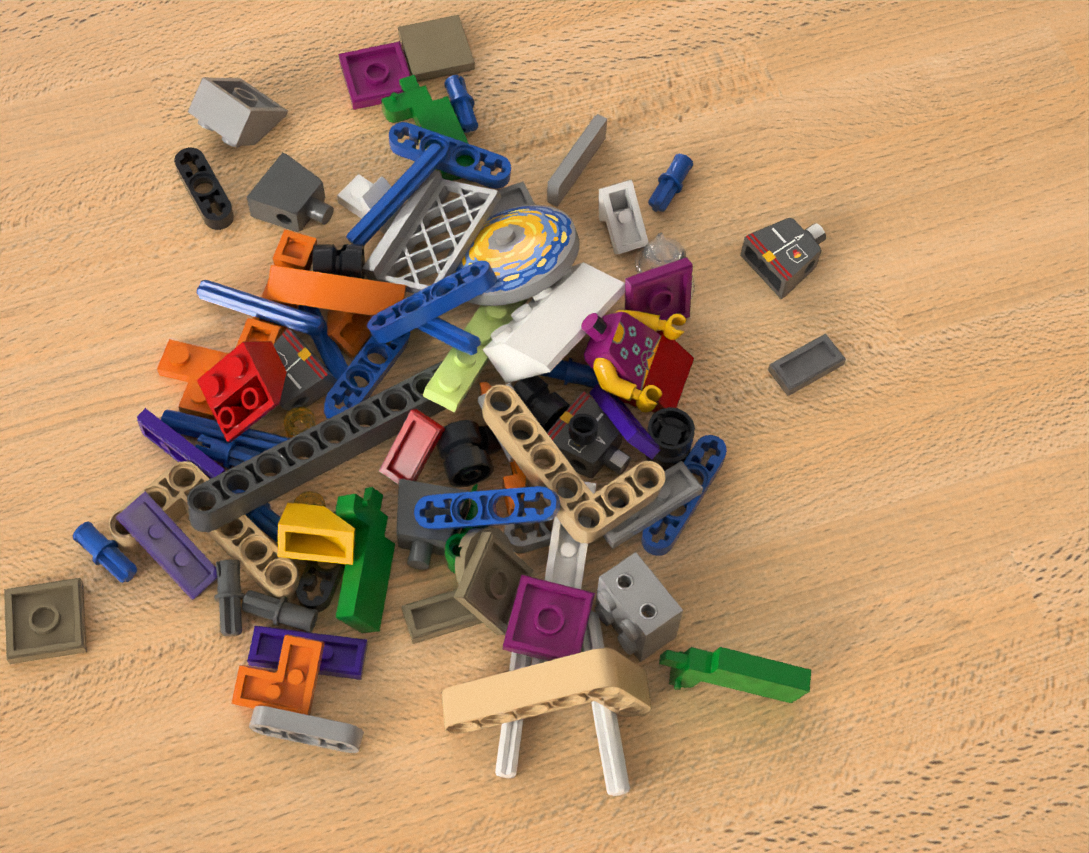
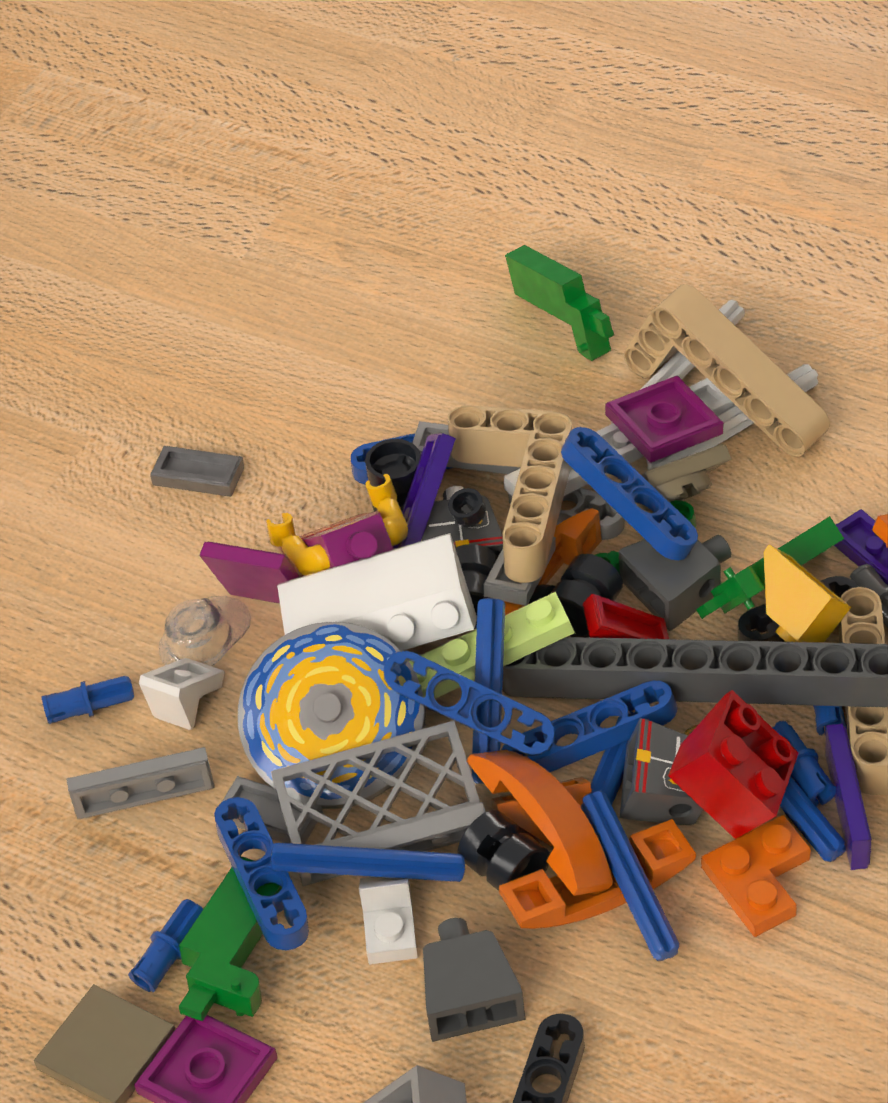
camera: 125 degrees left, 15 degrees down
(437, 617) = (740, 511): dark tan tile -> none
(637, 607) = (584, 370): light grey piece -> none
(783, 253) = (88, 553): dark grey torso -> none

